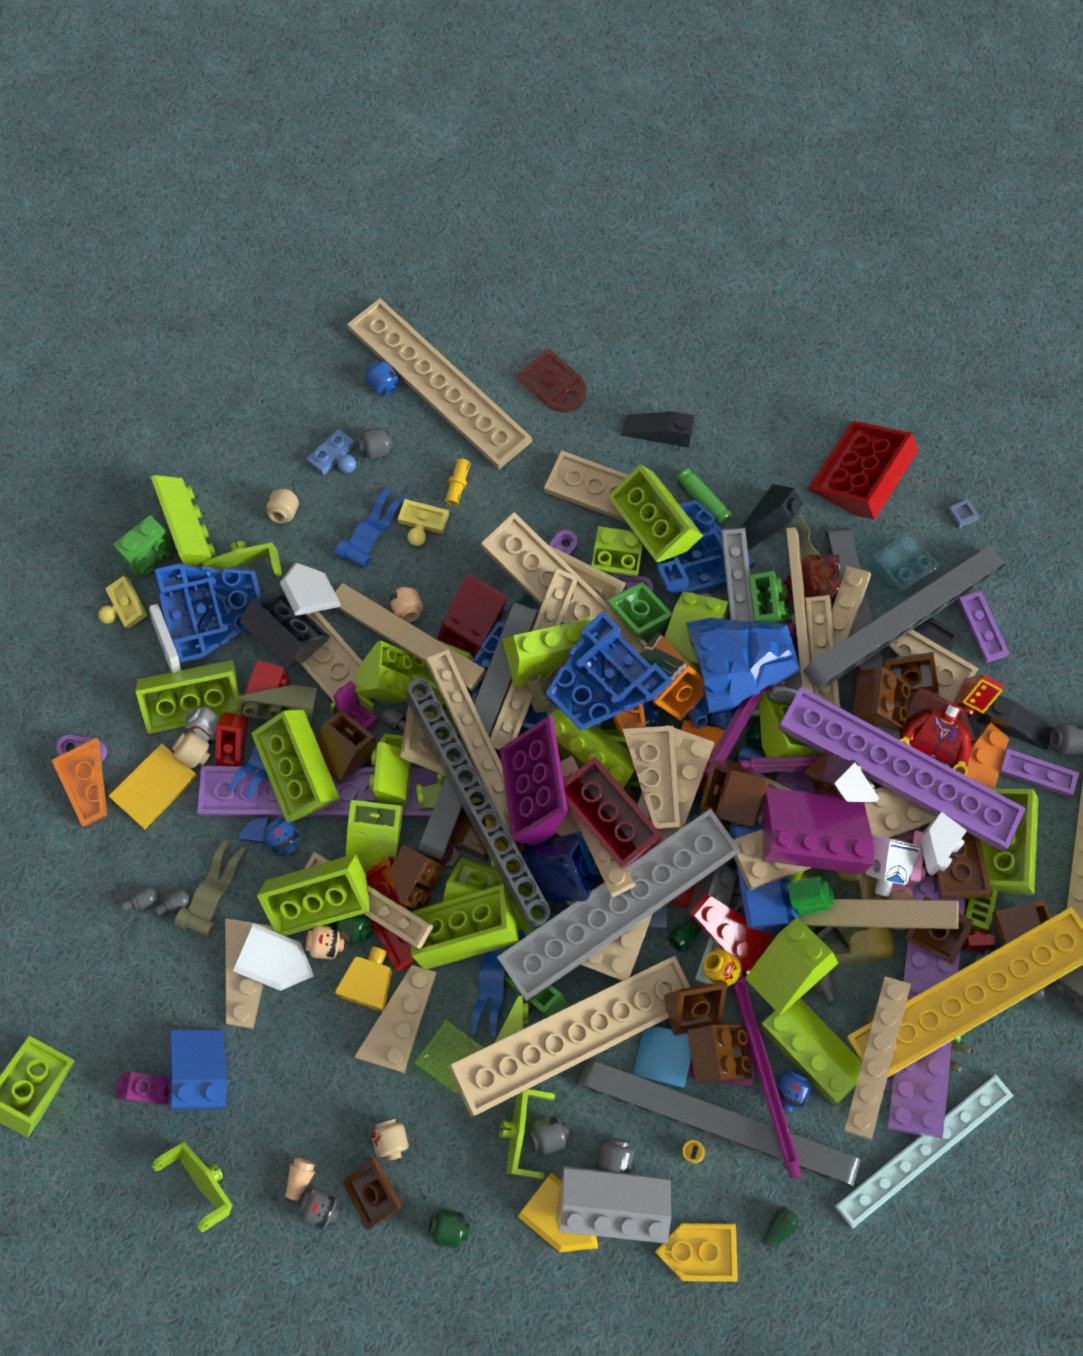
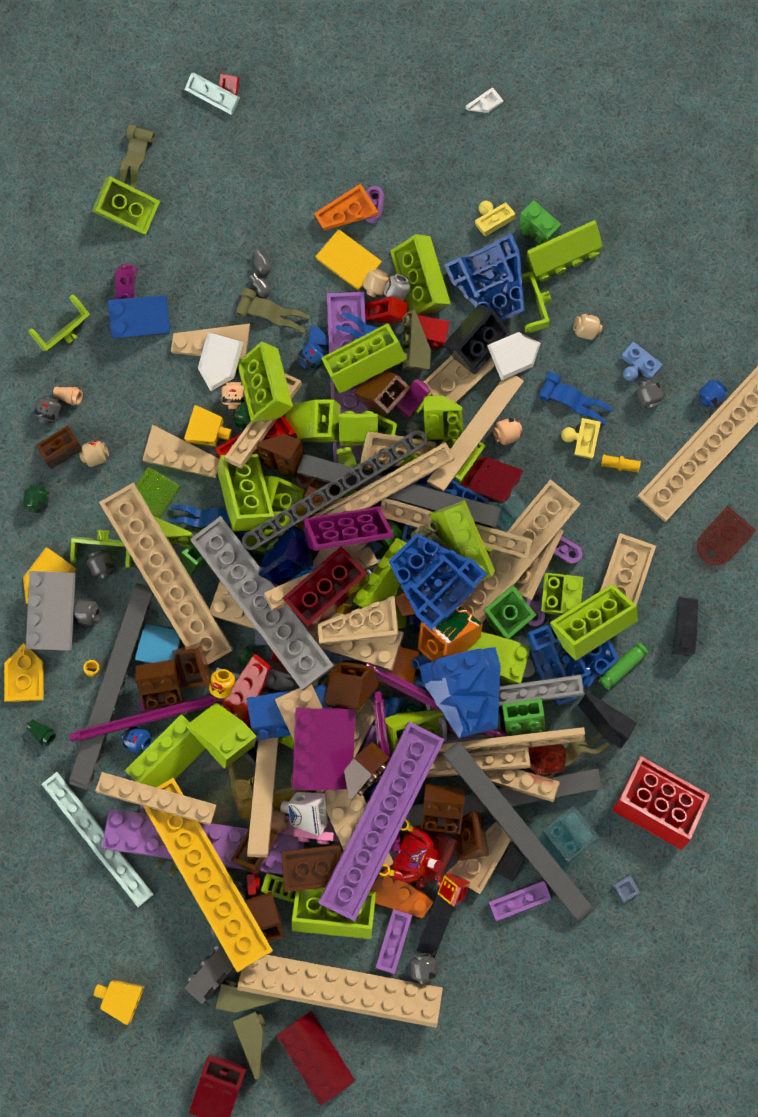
camera: 90 degrees right, 10 degrees up
(164, 638) = (463, 251): white tile -> none
(810, 896) = (272, 745): green brick -> none
(939, 841) = (323, 850): white slope -> none

